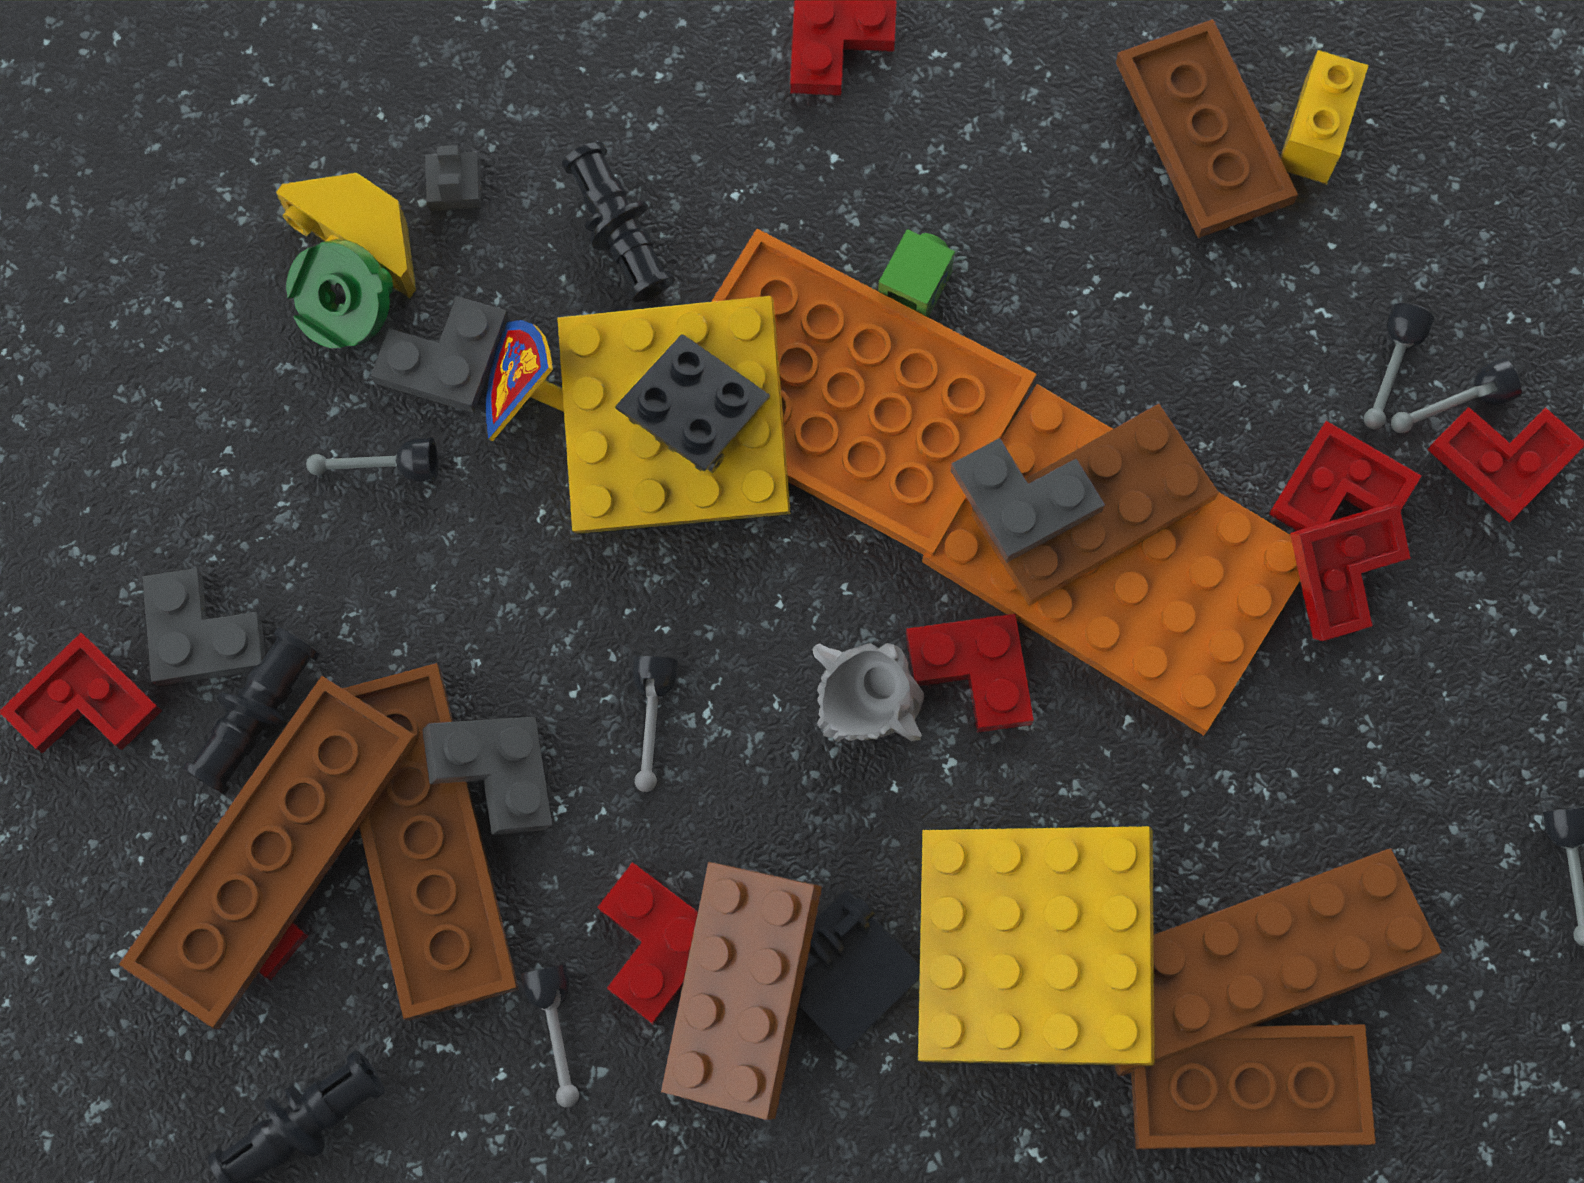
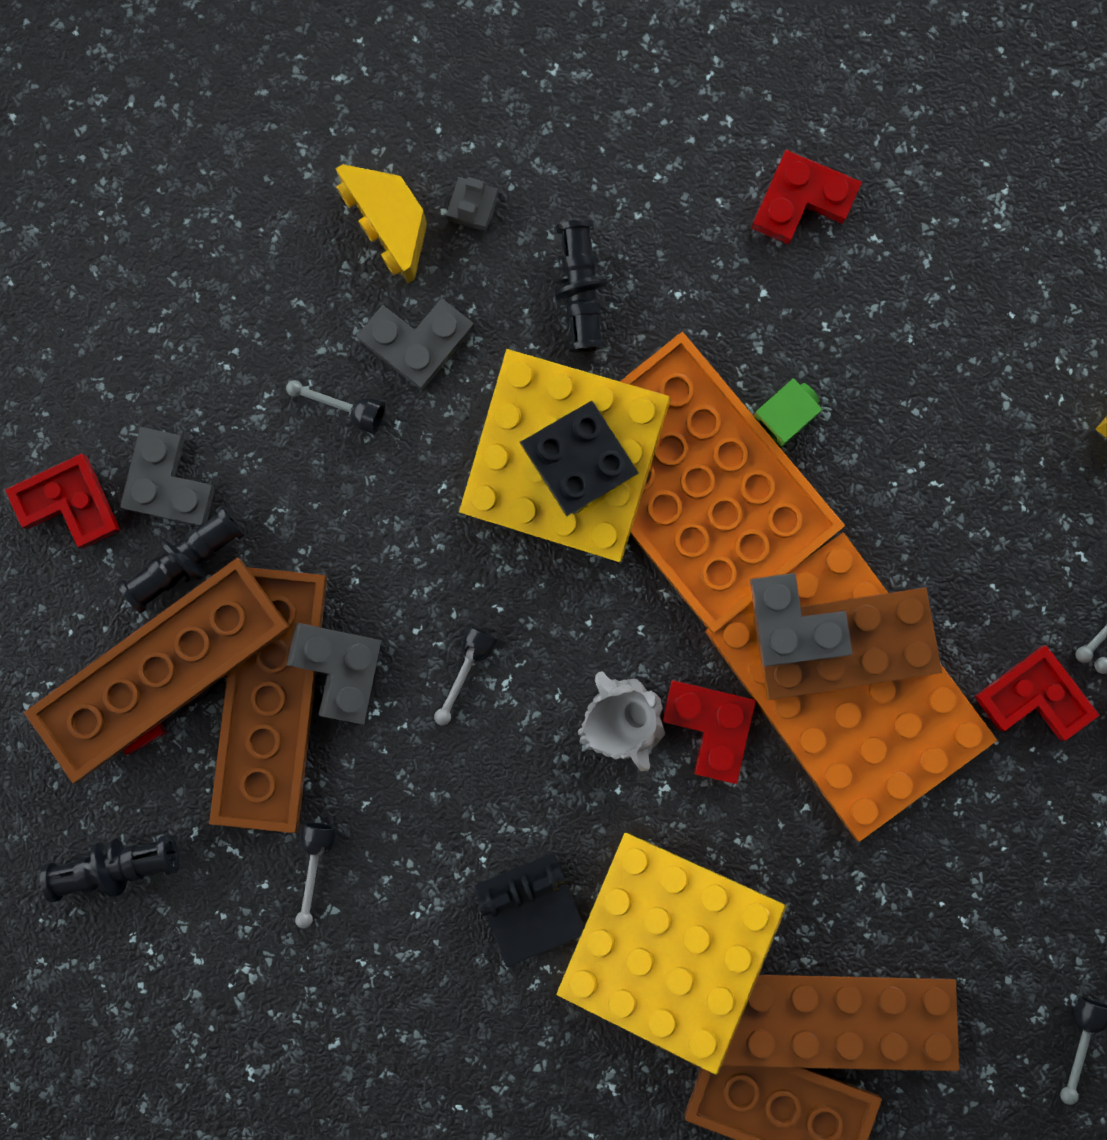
camera: 25 degrees right, 10 degrees up
(365, 287) = (373, 261): green plate -> none
(518, 374) = (462, 379): shield -> none
(665, 931) = (417, 836): red plate -> none
(741, 990) = (450, 899): dark orange plate -> none
(1206, 128) = (1054, 378): dark orange plate -> none
(1332, 563) = (1007, 753): red plate -> none

